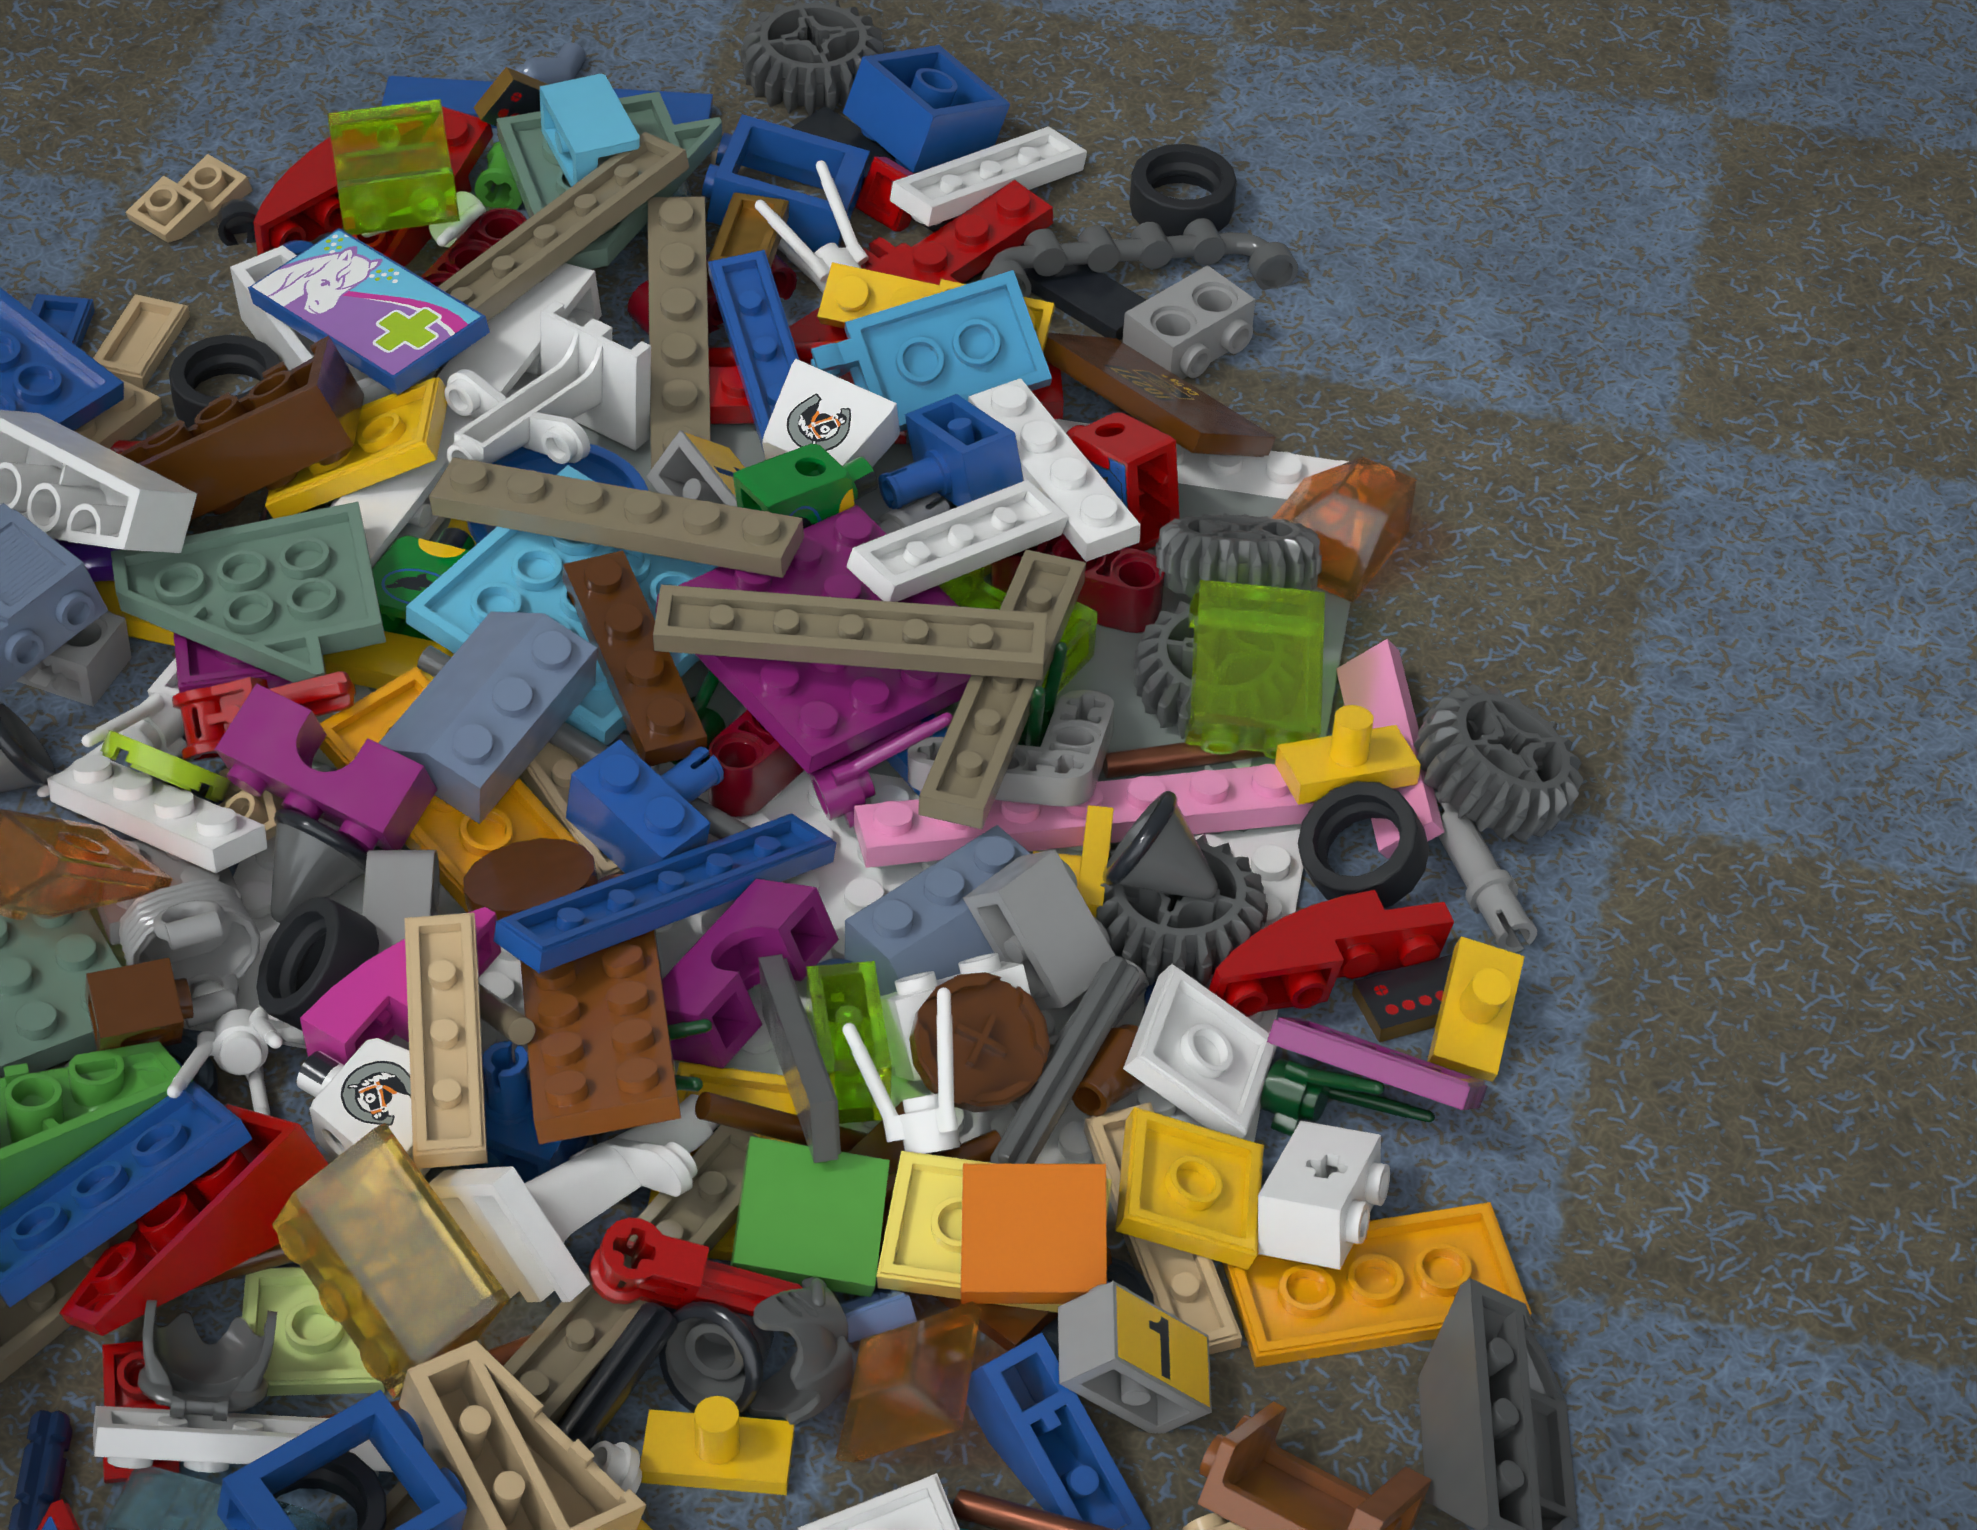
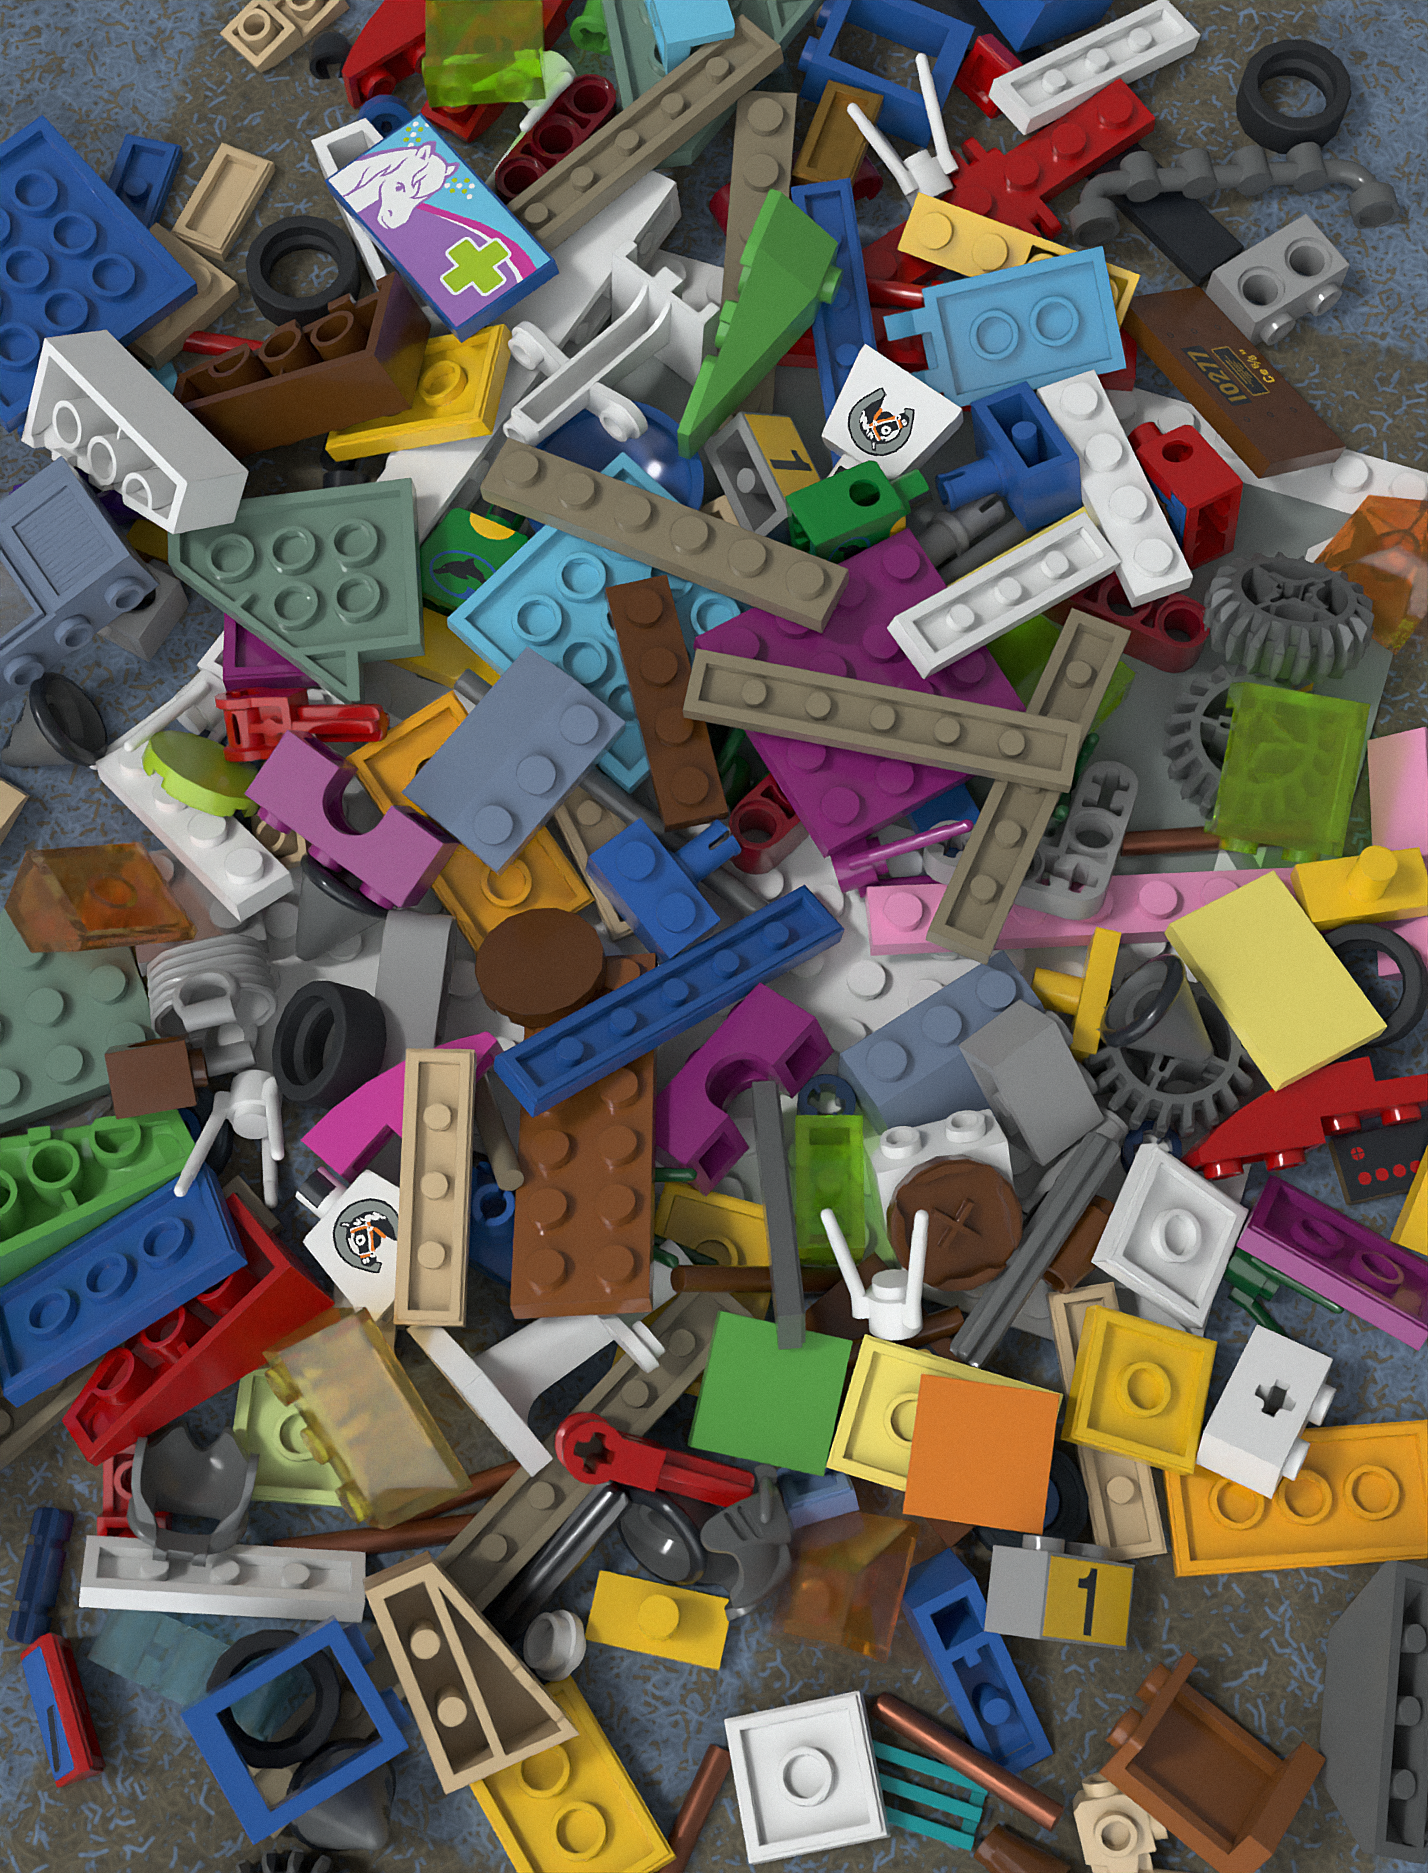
camera: 10 degrees right, 25 degrees up
(695, 351) = (781, 289): none -> bright green wedge
(1275, 833) = (1275, 980): none -> light yellow tile

